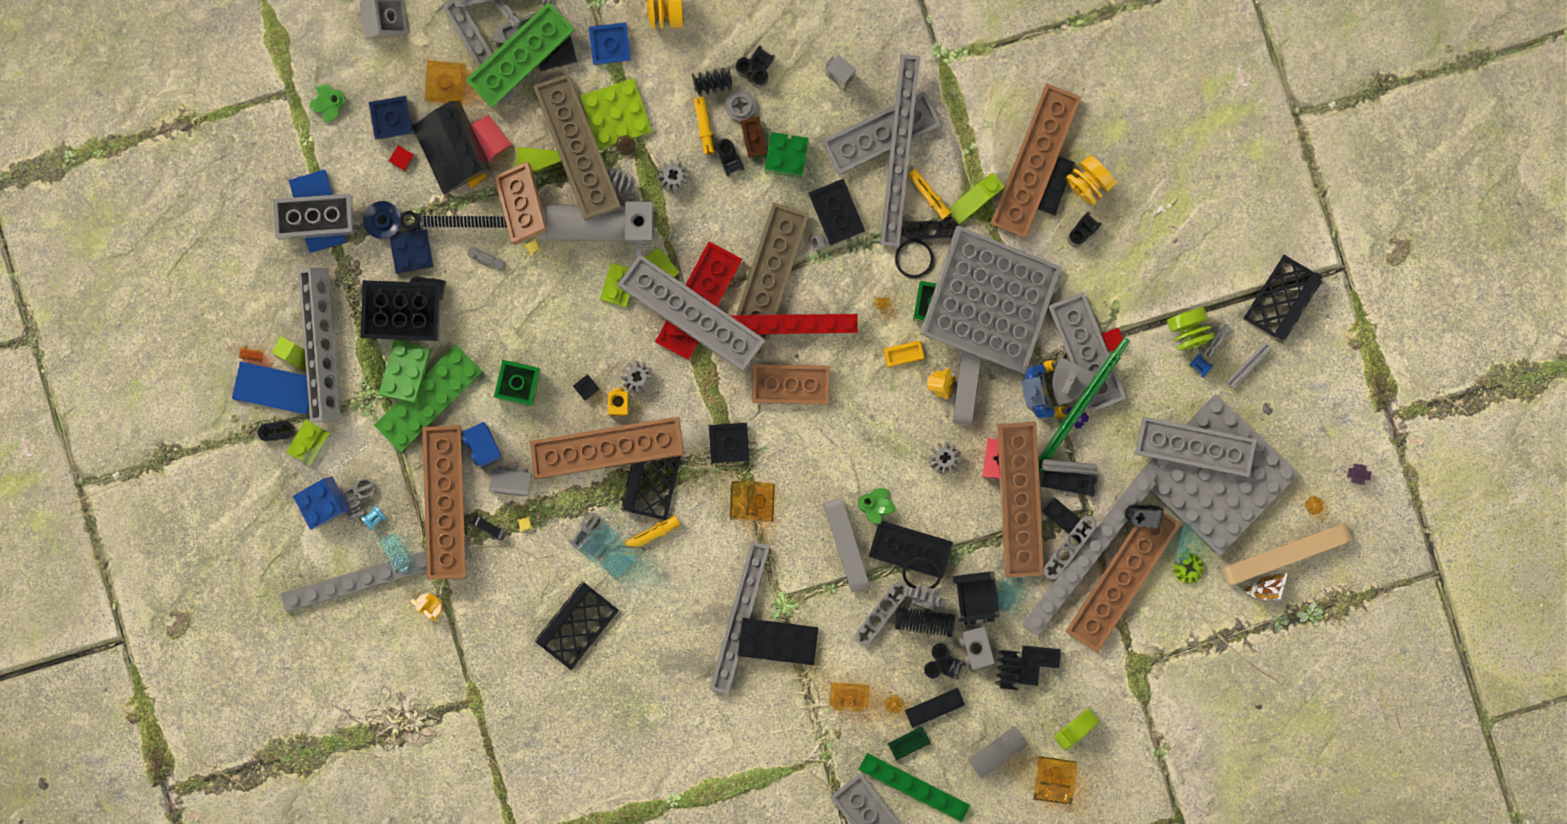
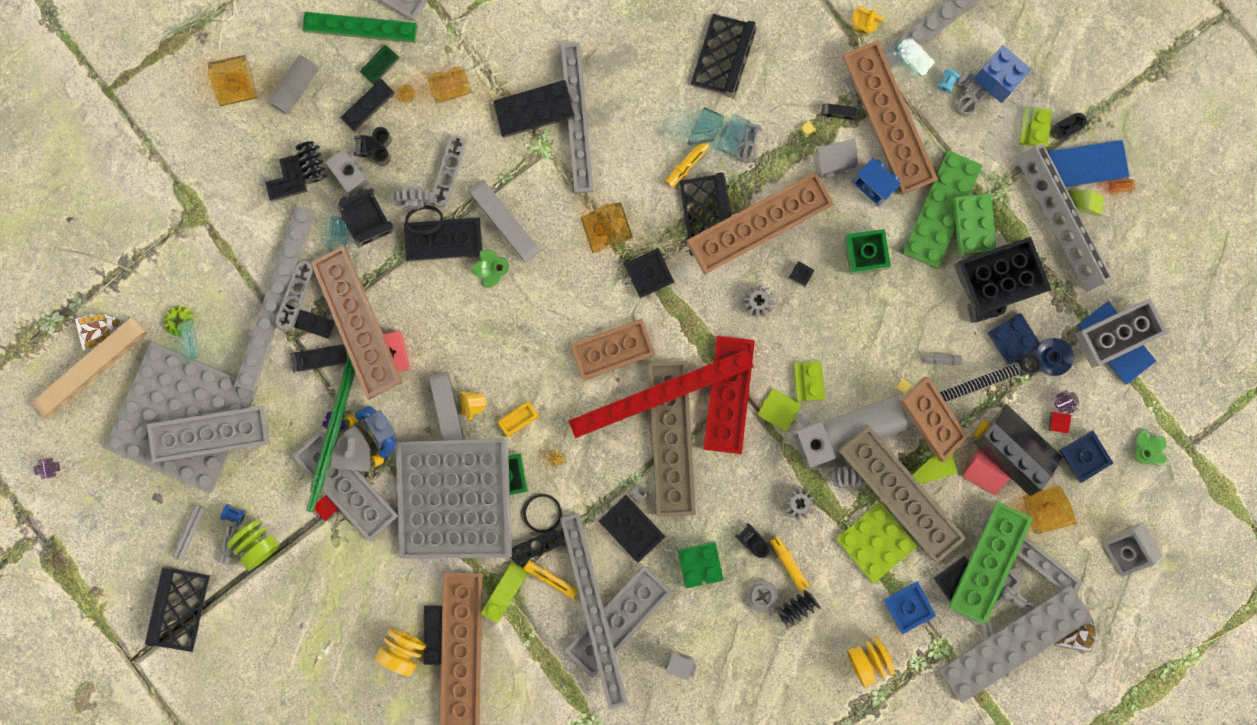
camera: 155 degrees right, 0 degrees up
(388, 173) = (1066, 402): none -> gear
(617, 411) = (769, 263): yellow brick -> none
(625, 145) = (855, 515): clear smoke tile -> none
(691, 313) = (731, 377): light grey plate -> none
(753, 137) = (737, 570): reddish brown plate -> none
(758, 64) = (761, 640): black piece -> none
(903, 613) = (381, 181): black piece -> none
(949, 463) = (437, 332): light grey gear -> none
(1069, 467) = (322, 371): light grey axle -> none
(1077, 729) = (227, 132): lime animal -> none
(1085, 227) = (390, 605): black piece -> none
(1121, 582) = (236, 288): medium nougat plate -> none
(1144, 515) = (232, 350): black piece -> none
(1319, 505) = (85, 424): clear yellow plate -> none

